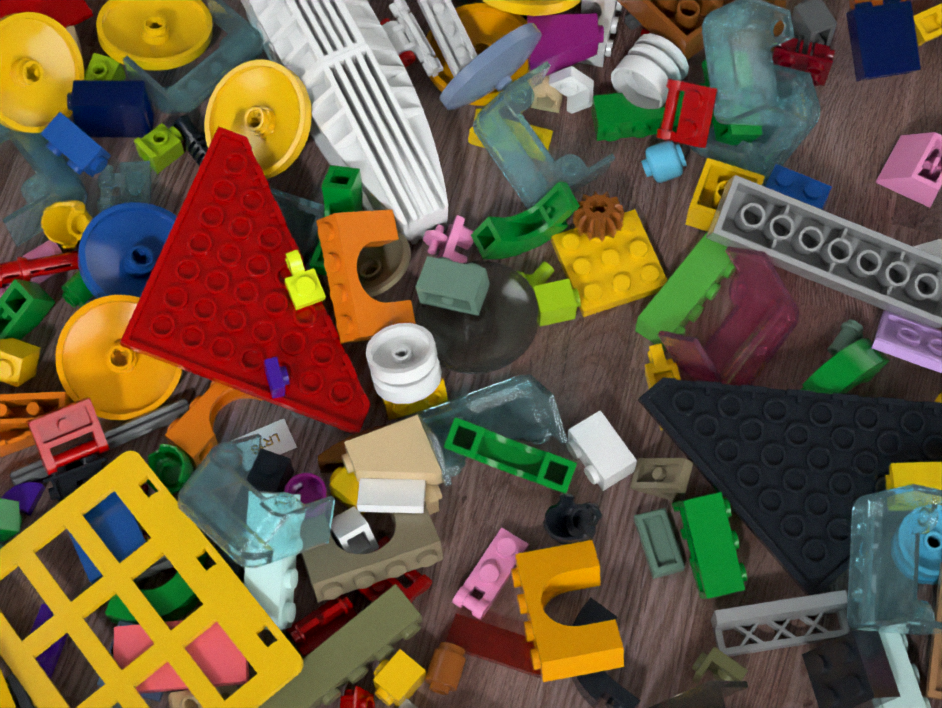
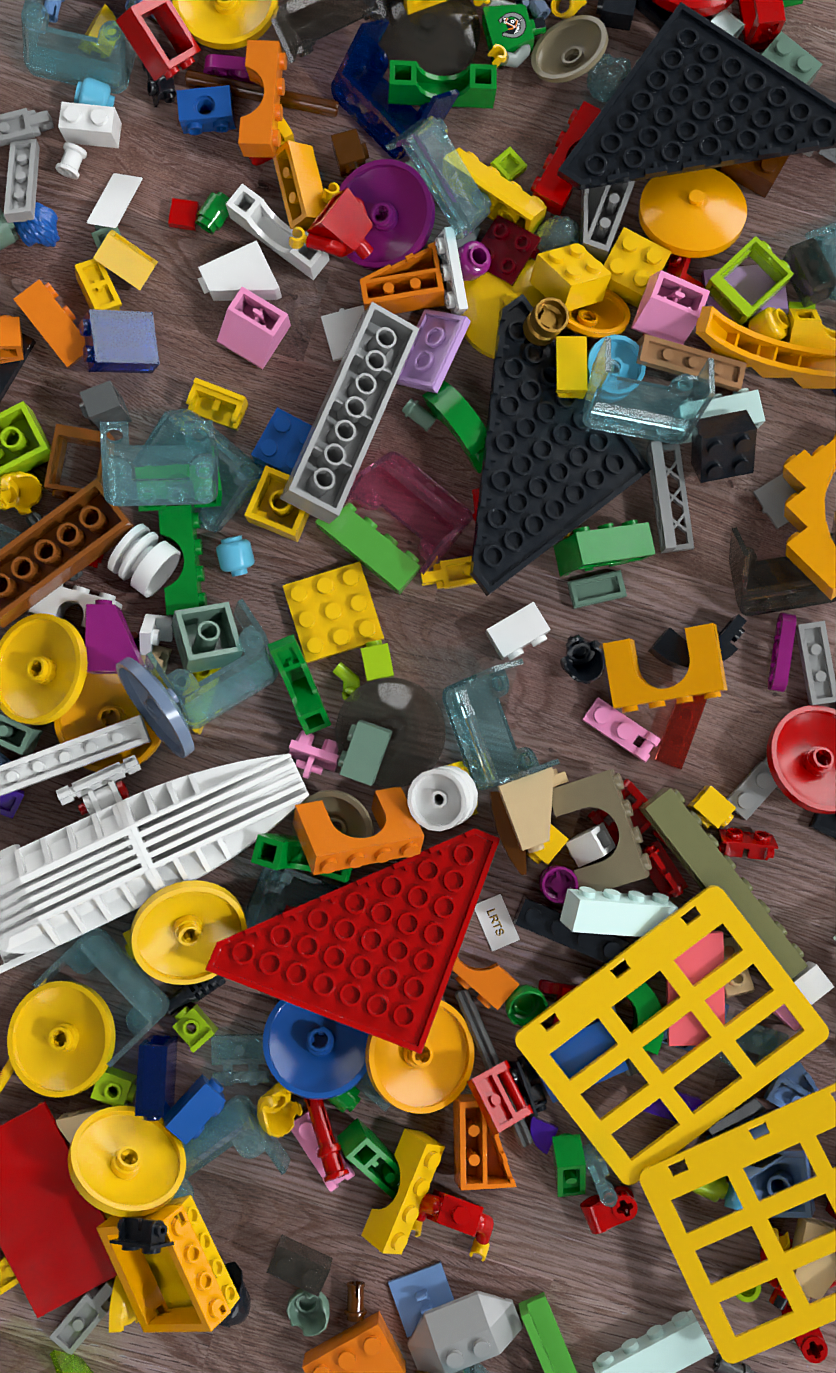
camera: 90 degrees left, 20 degrees up
(243, 520) = (592, 946): clear light blue windscreen -> none
(276, 377) = (458, 910): dark purple plate -> none
(302, 285) = (368, 887): neon yellow plate -> none
(391, 495) = (565, 810): white tile -> none
(445, 668) = (703, 769): dark orange brick -> none
(510, 455) = (535, 682): green arch -> none
(572, 128) = (206, 637): none -> sand green brick
(598, 216) = (288, 616): dark orange gear -> none
(662, 477) = (544, 581): dark tan slope -> none
(694, 115) = (199, 521): red plate -> none
(722, 665) = (710, 545): olive bracket -> none
(817, 65) = (149, 407): dark red hinge -> none
(829, 138) = (217, 404): none -> yellow hinge

